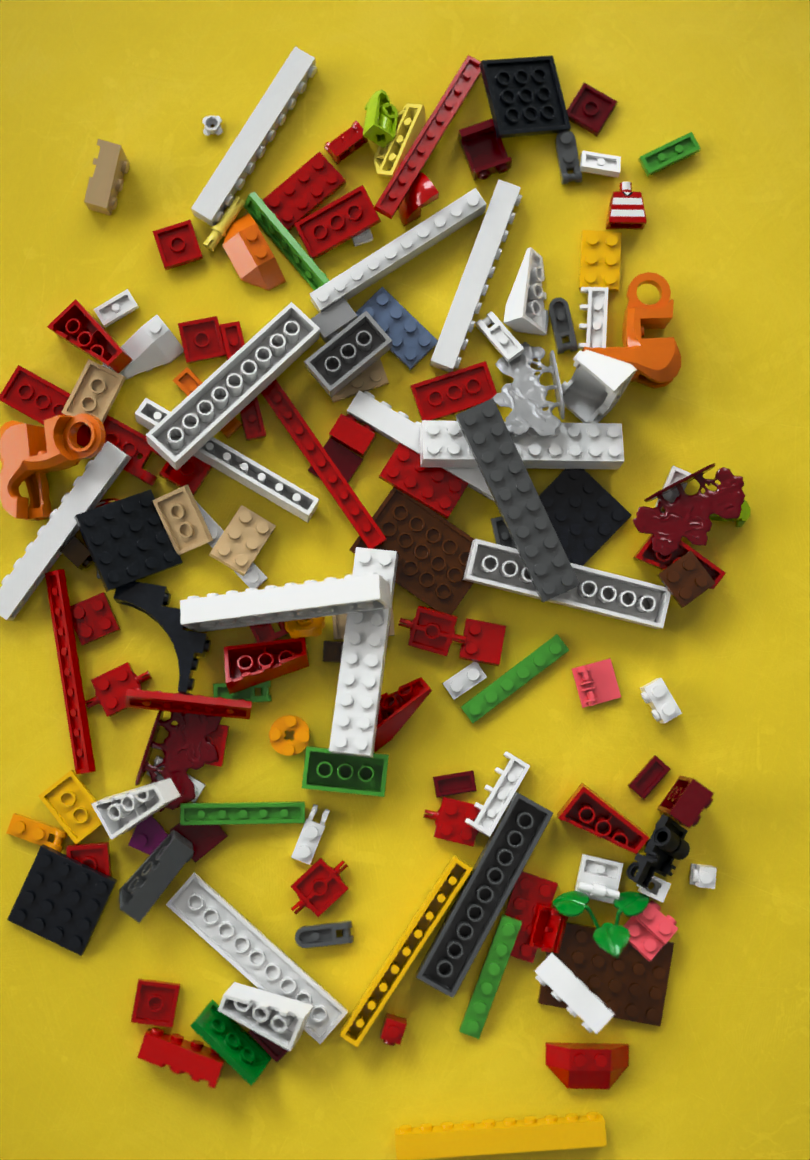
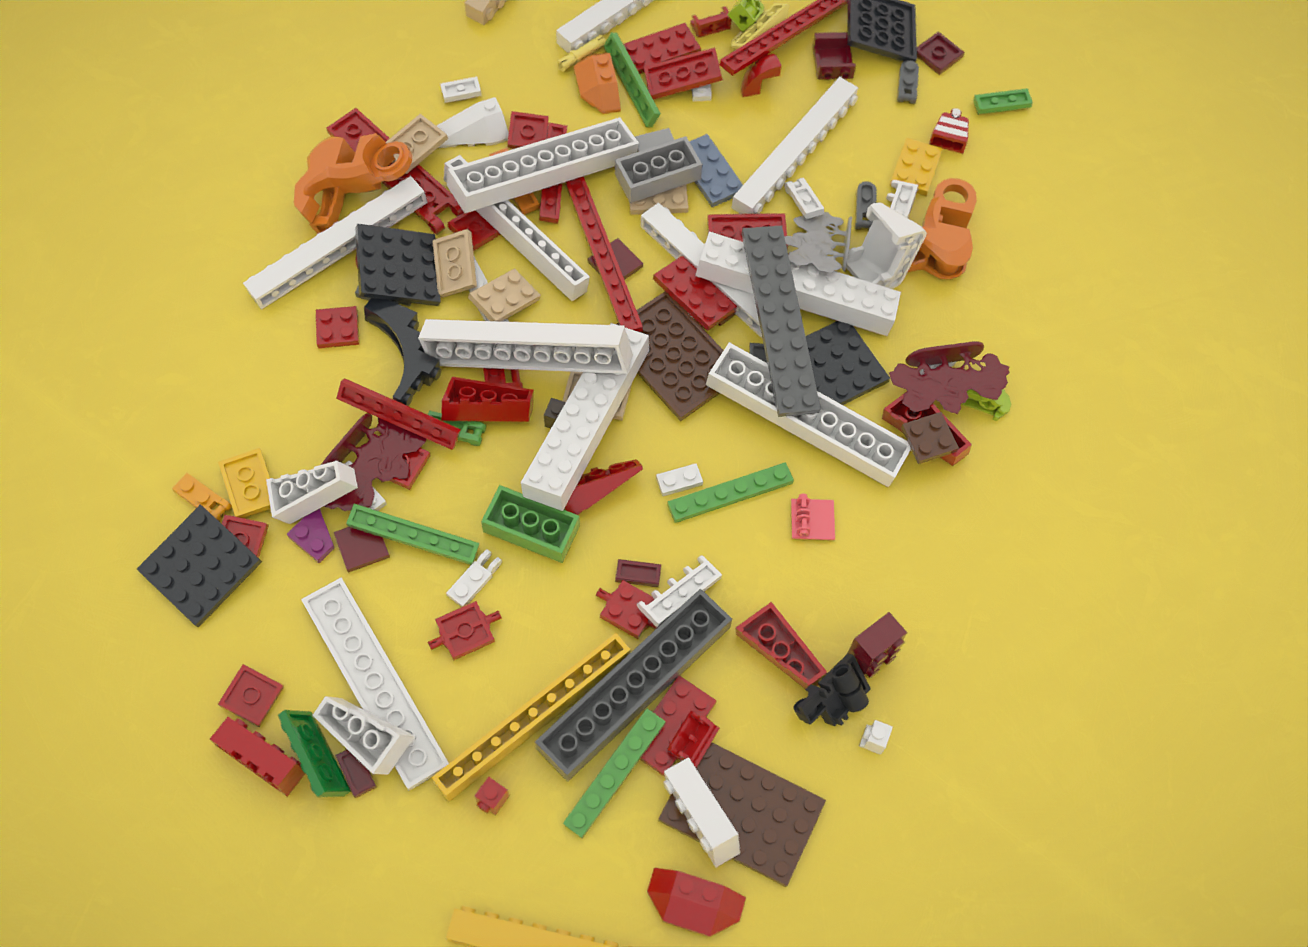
camera: 20 degrees right, 20 degrees down
(70, 671) = (295, 364): red plate -> none
(77, 553) = (345, 266): dark brown brick -> none
(87, 334) = (427, 98): red wedge -> none
(112, 687) = (325, 393): red plate -> none
(154, 875) = (303, 562): dark grey wedge -> none
(177, 244) = (534, 57): red plate -> none
(301, 735) = (480, 470): light orange plate -> none
(311, 627) = (538, 378): light orange plate -> none
(324, 934) = (452, 679): dark grey plate -> none
(353, 435) = (640, 240): red brick -> none
(400, 250) = (734, 109): white brick -> none
(432, 630) = (661, 422): red plate -> none
(483, 642) = (708, 449): red plate -> none
(526, 301) = (837, 178): white wedge -> none
(599, 878) = (761, 708): white plate -> none
(600, 164) = (936, 92): white plate -> none
(608, 936) = (756, 749): green plant -> none
(649, 777) = (843, 624): dark red tile -> none
(650, 930) = (802, 773): coral plate -> none
(659, 891) = (826, 730): white brick -> none
(660, 700) = (874, 550): white brick -> none

